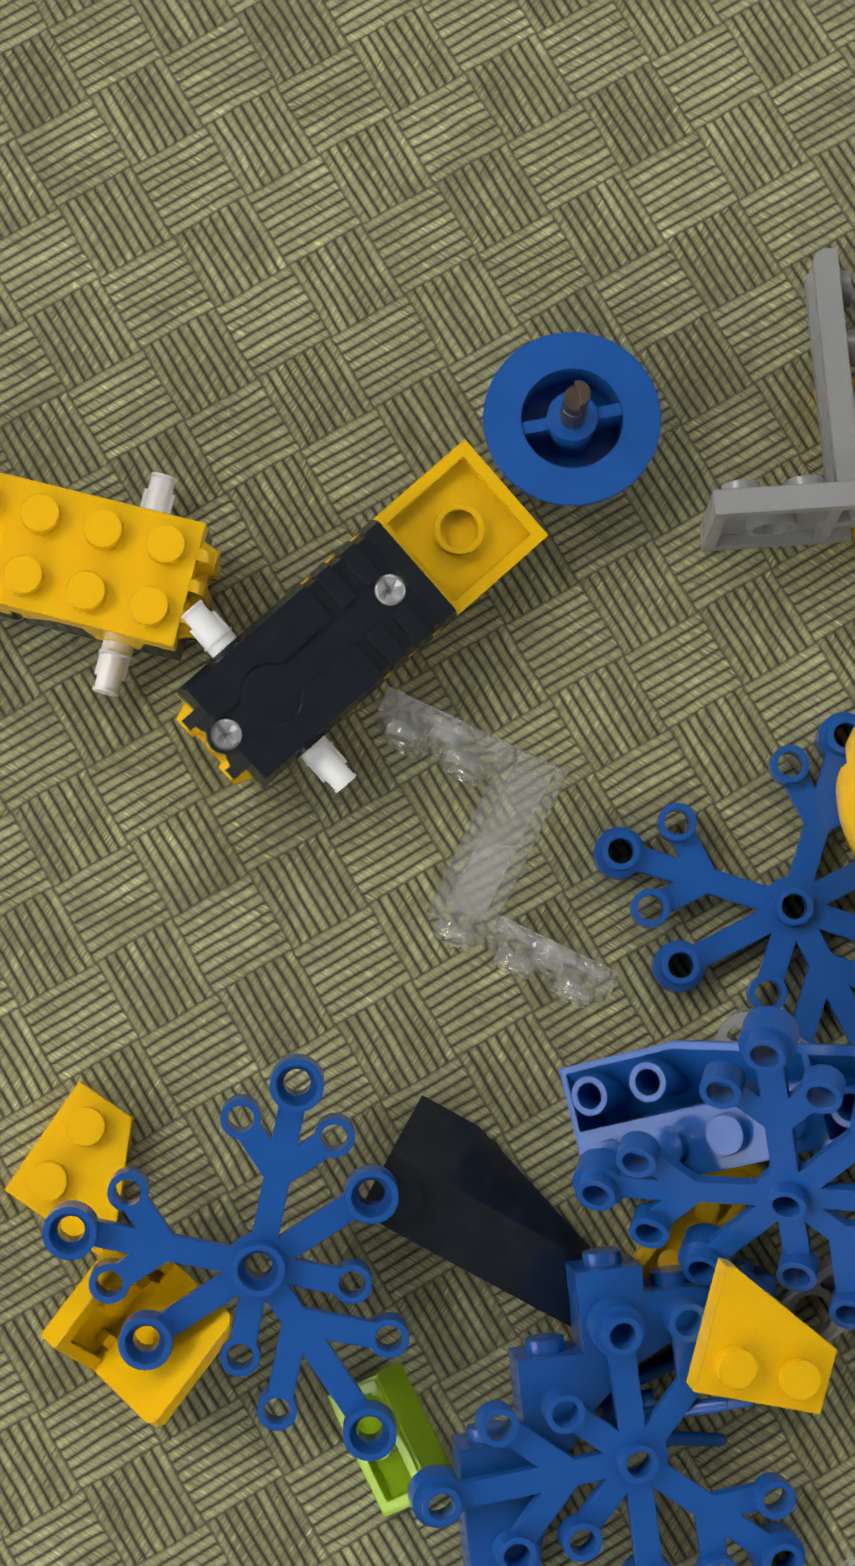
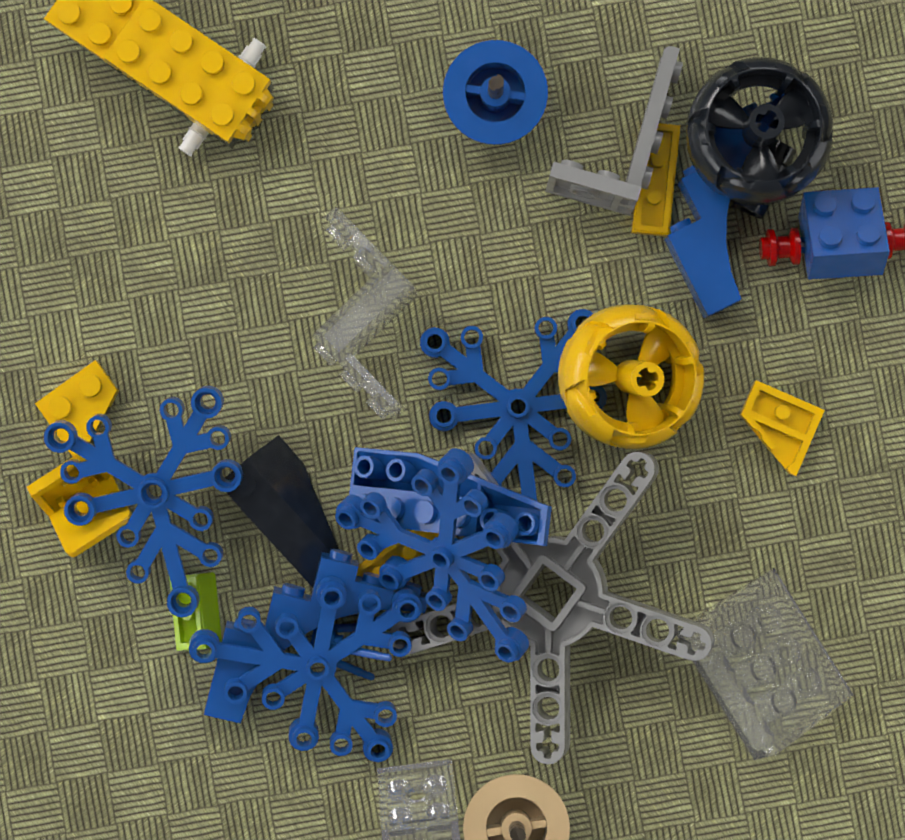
camera: 25 degrees right, 5 degrees up
(352, 623) = (333, 162): black piece -> none
(757, 1348) = (402, 631): yellow wing -> none

